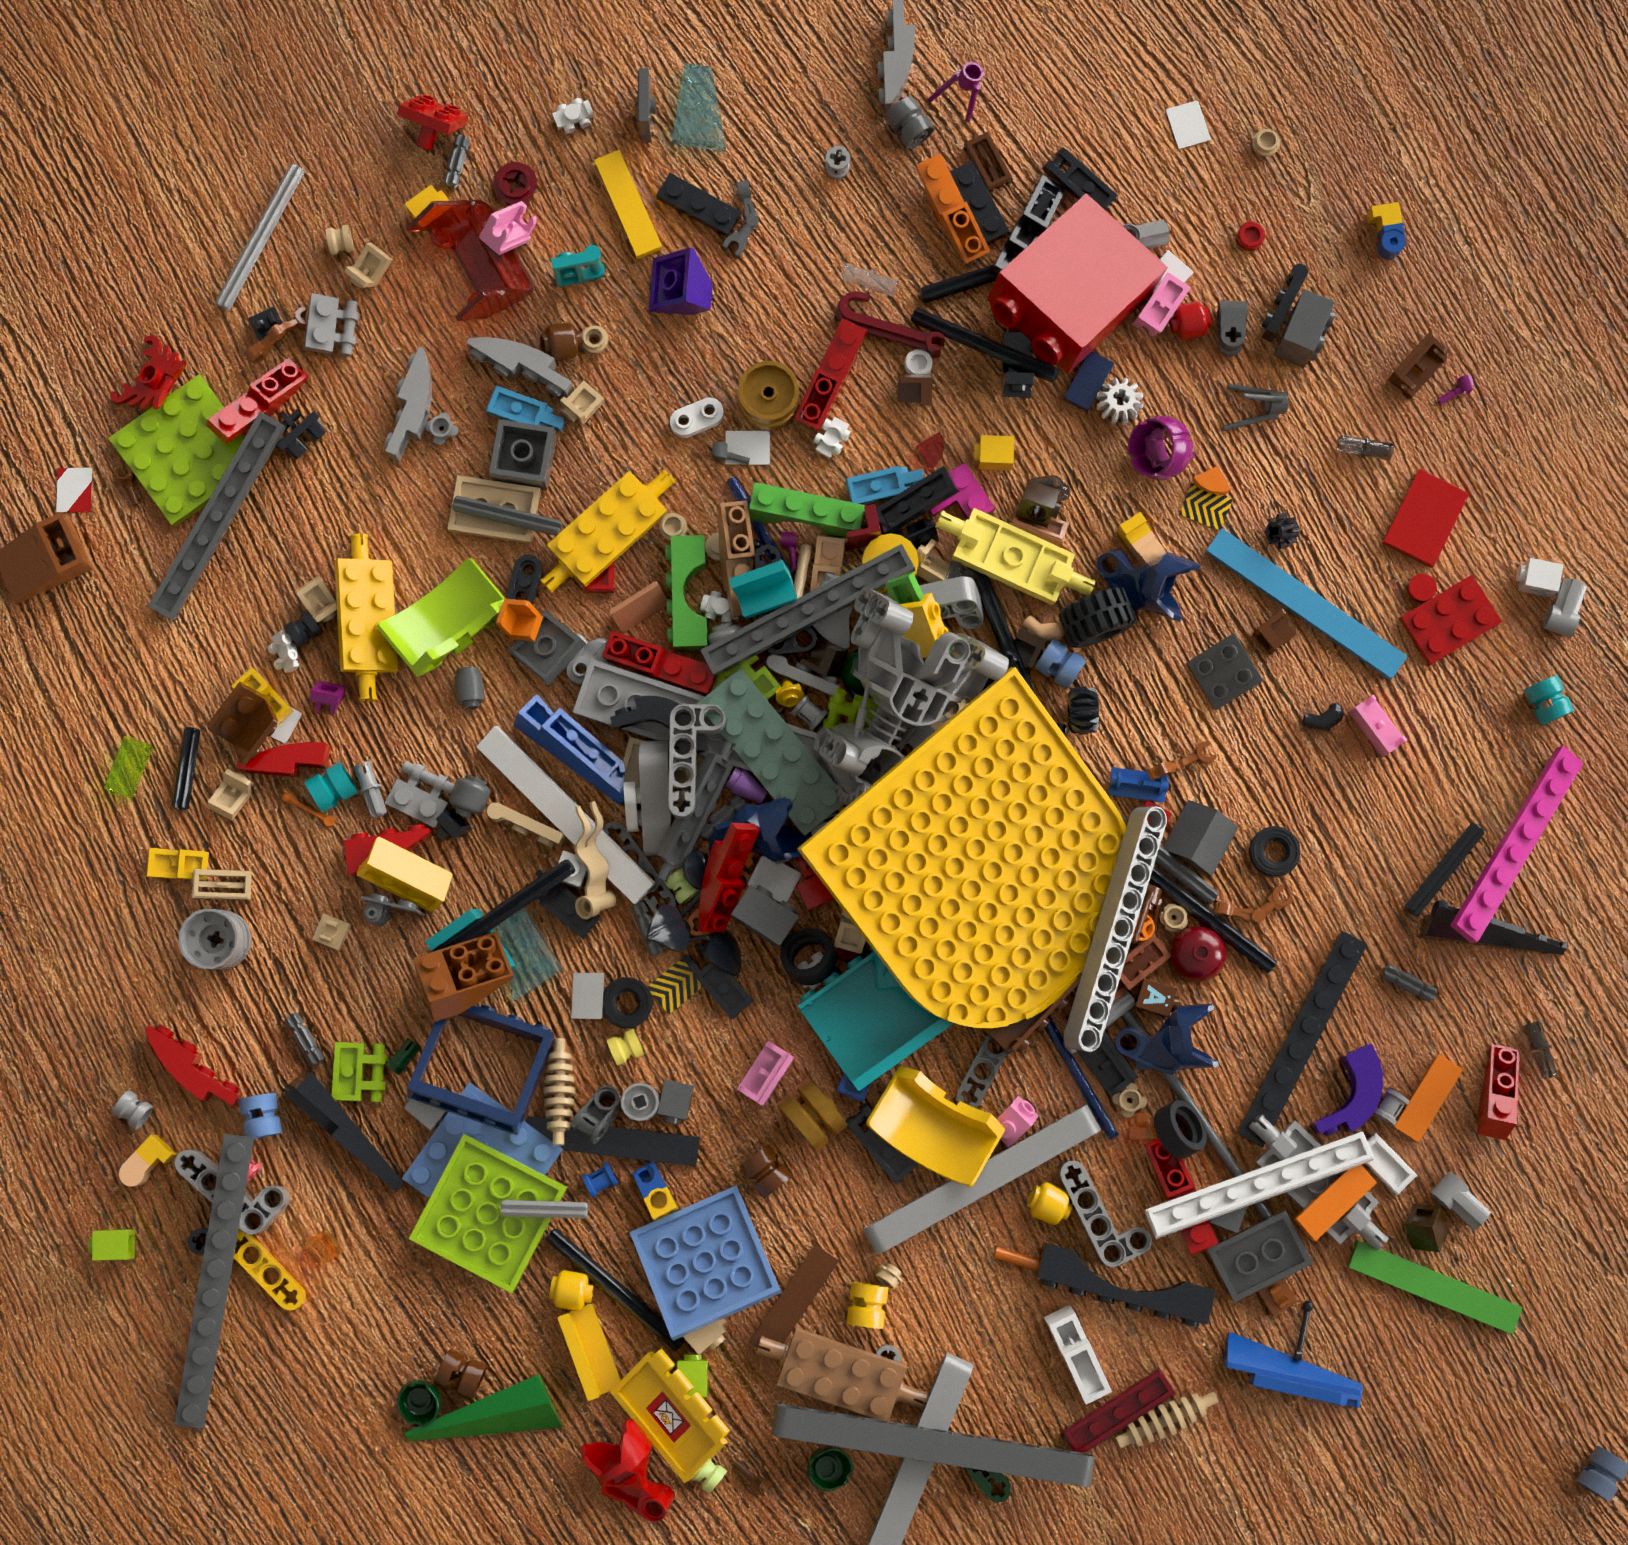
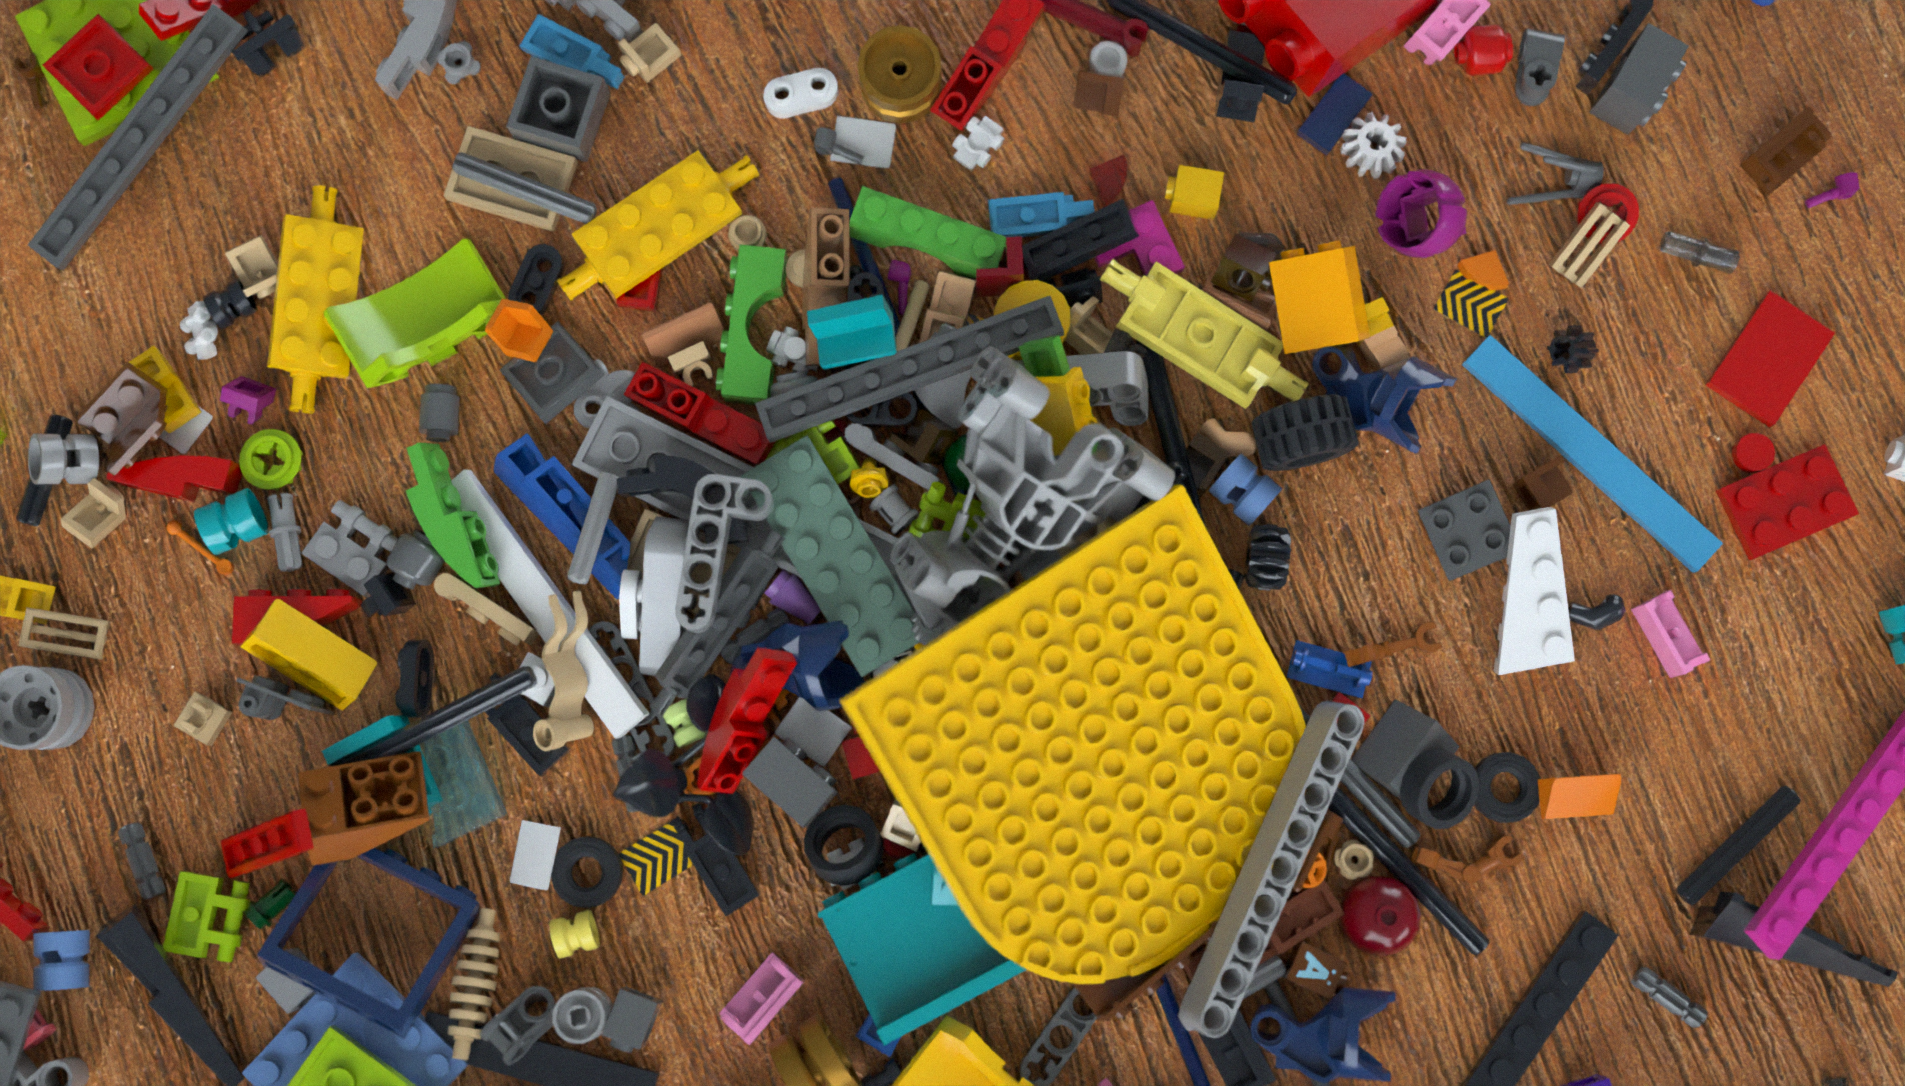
camera: 10 degrees right, 0 degrees up
(180, 468) = (98, 67): none -> red plate
(201, 758) = (50, 463): none -> light grey wheel
(343, 728) = (264, 444): none -> lime gear
(399, 1011) = (267, 843): none -> red tile
(481, 872) = (416, 678): none -> black plate
(494, 771) = (452, 532): none -> bright green slope
(597, 755) = (593, 528): none -> light grey axle
(647, 624) = (691, 359): none -> tan tile
(1094, 519) = (1319, 297): none -> light orange brick
(1242, 864) = (1459, 798): none -> black tyre
(1279, 722) = (1535, 610): none -> white wing
(1305, 437) = (1600, 253): none -> tan tile
(1308, 428) = (1609, 195): none -> red gear
(1326, 849) = (1578, 796): none -> orange slope

